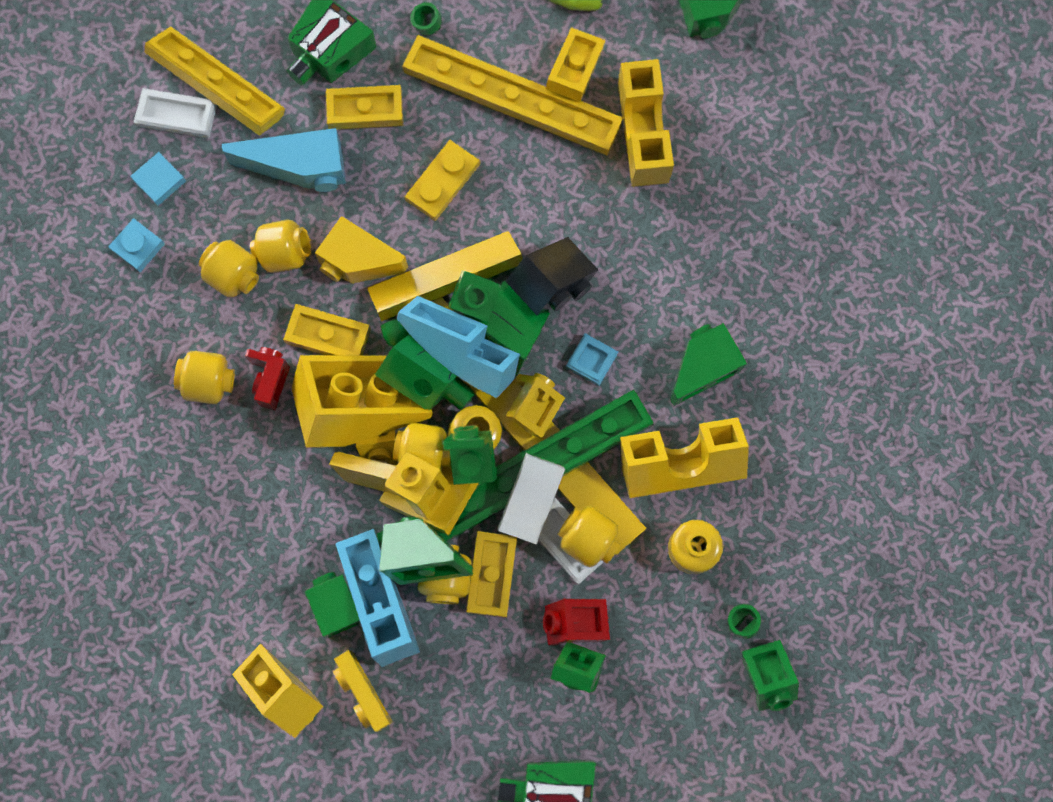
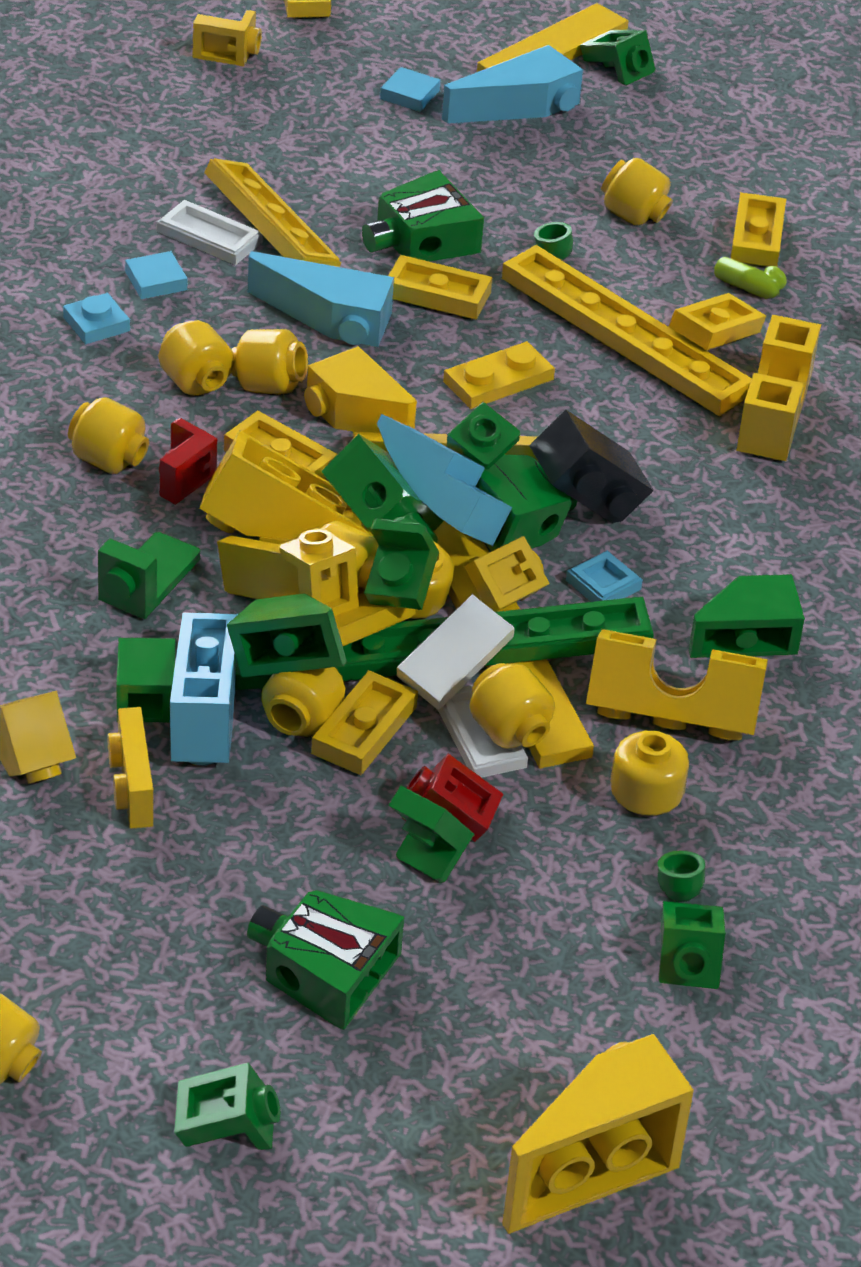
camera: 20 degrees right, 35 degrees down
(289, 497) = (143, 576): none -> green bracket

